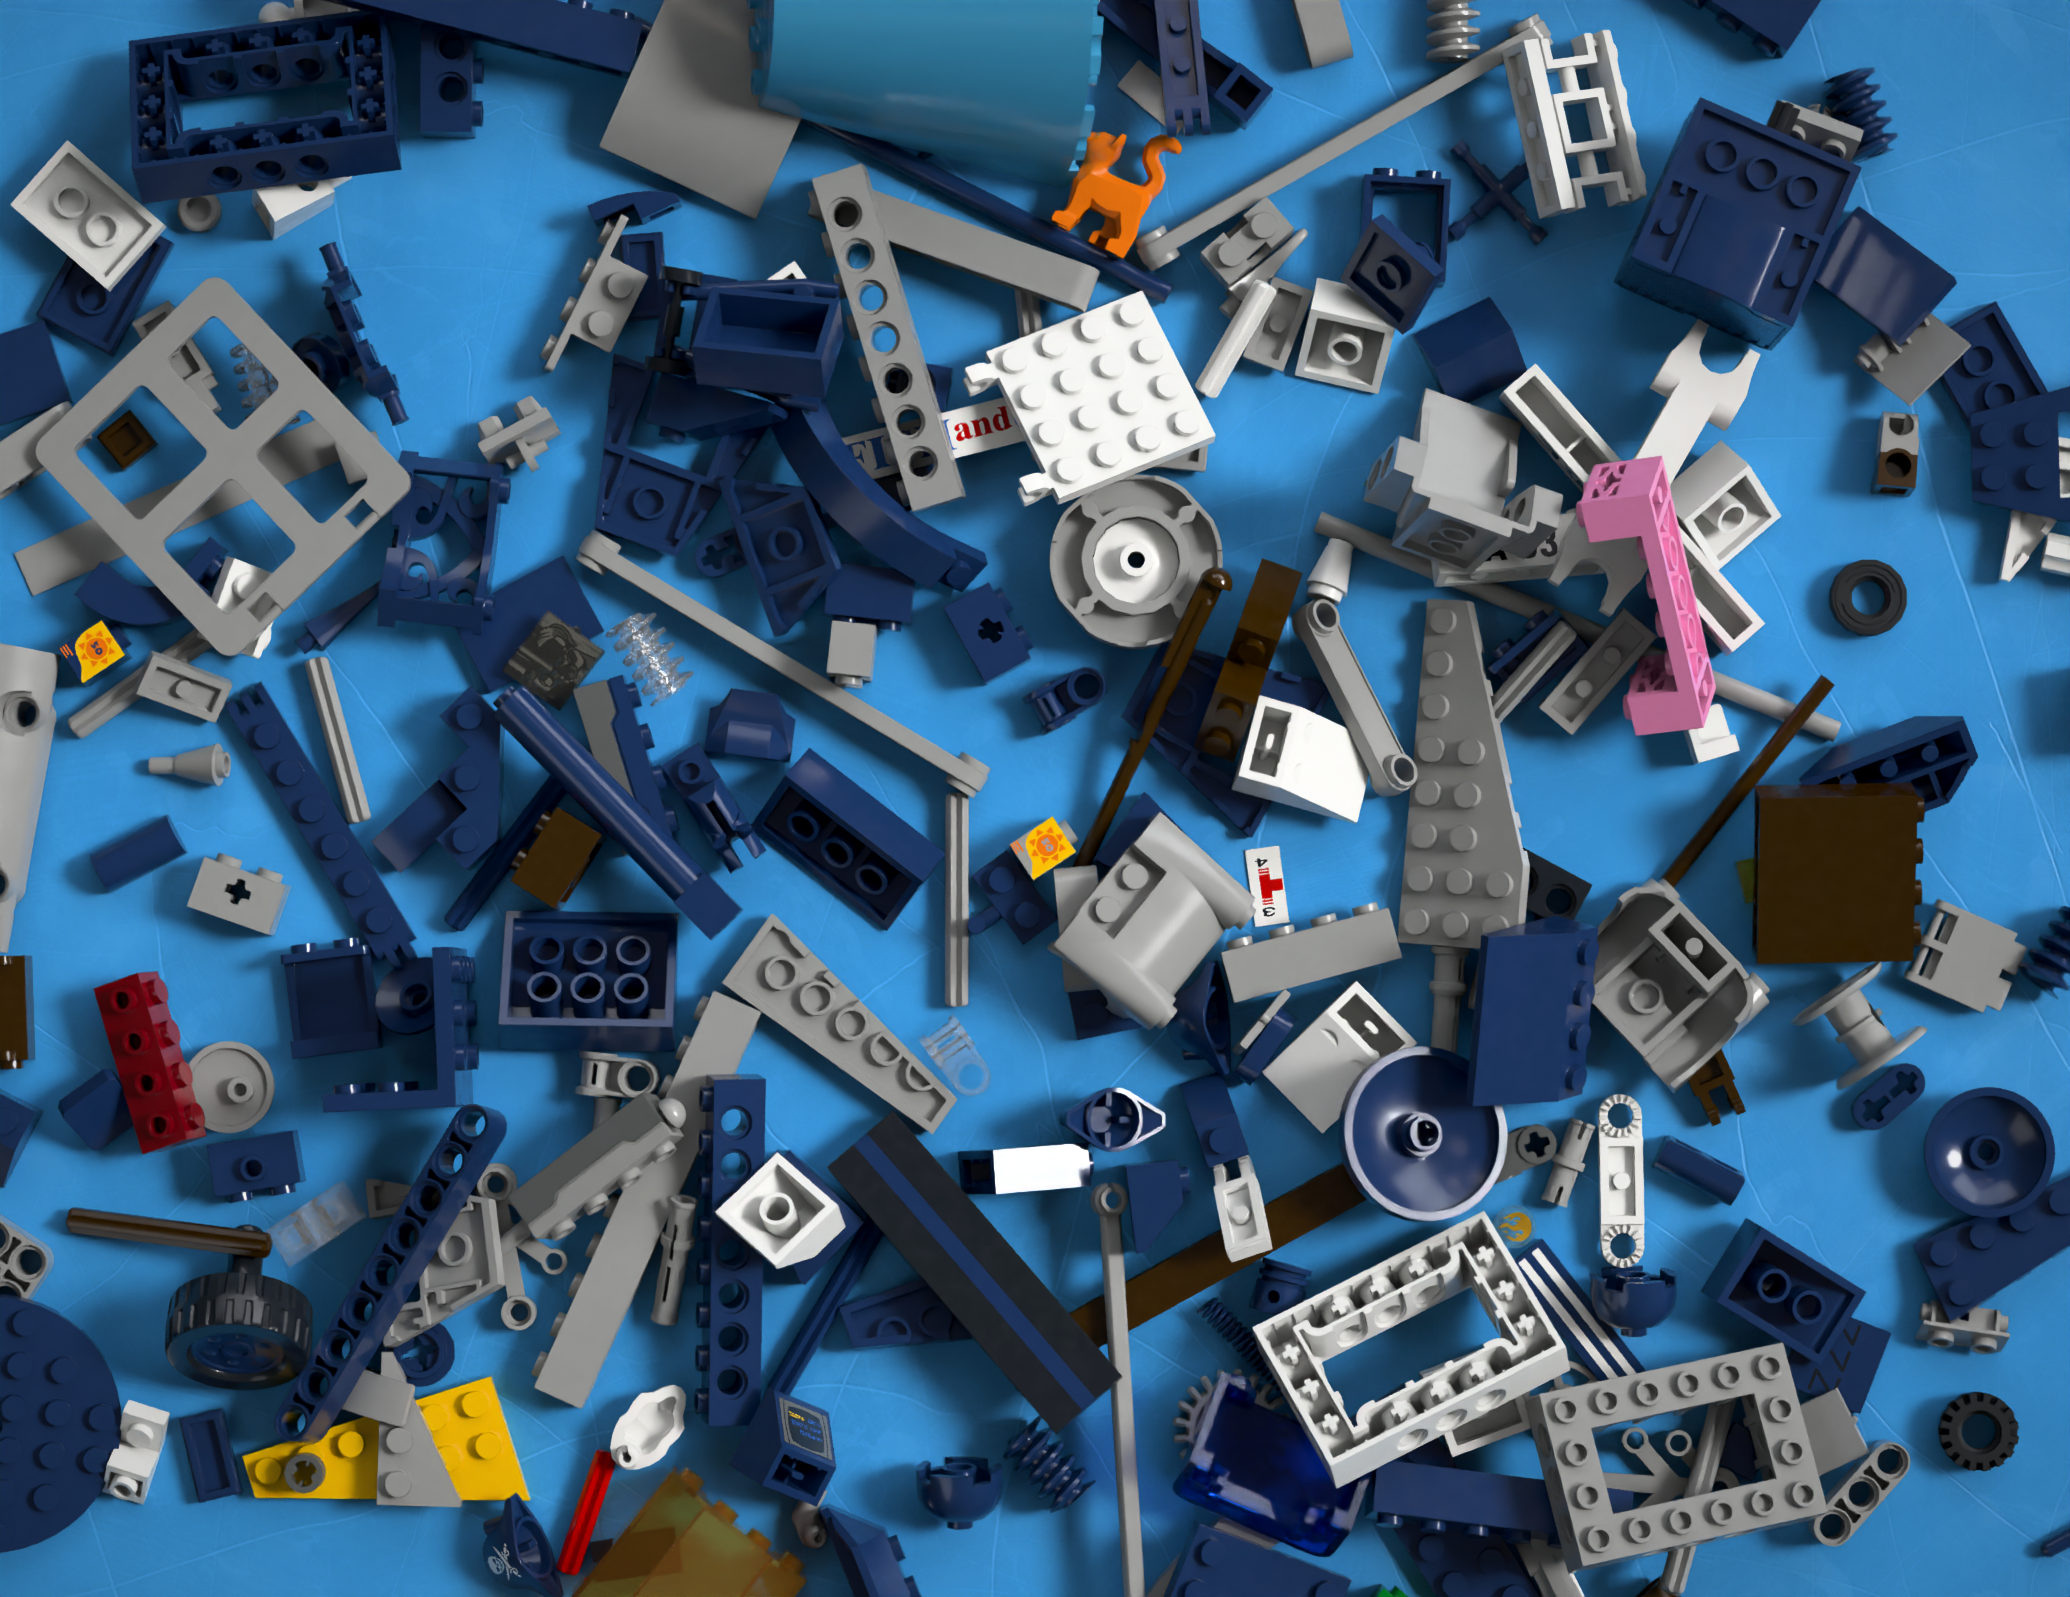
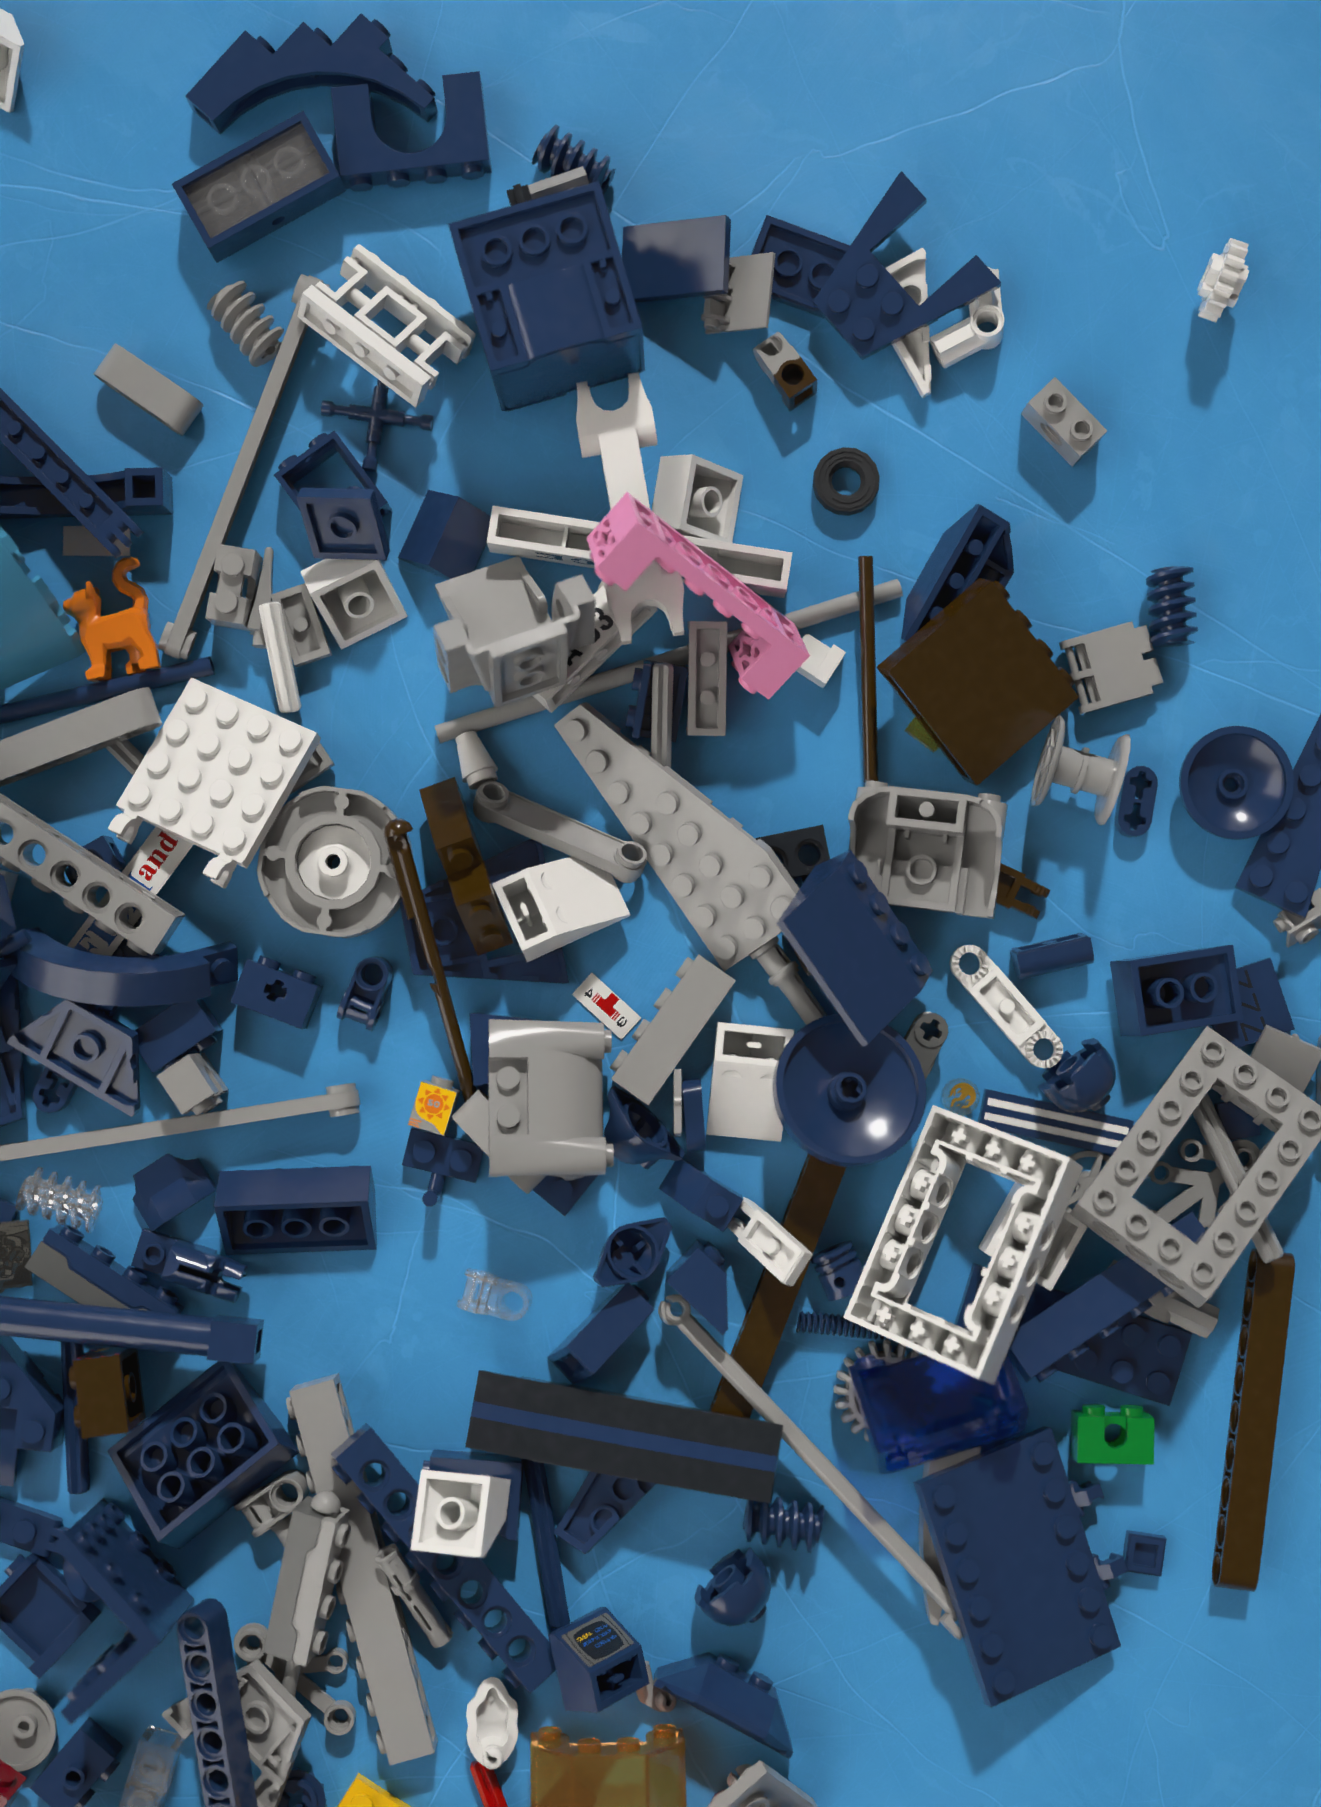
camera: 40 degrees left, 0 degrees up
(815, 1006) = (373, 1341): light grey wing -> none
(956, 899) = (405, 1189): light grey axle -> none
(1568, 1162) = (961, 1023): light grey pin -> none

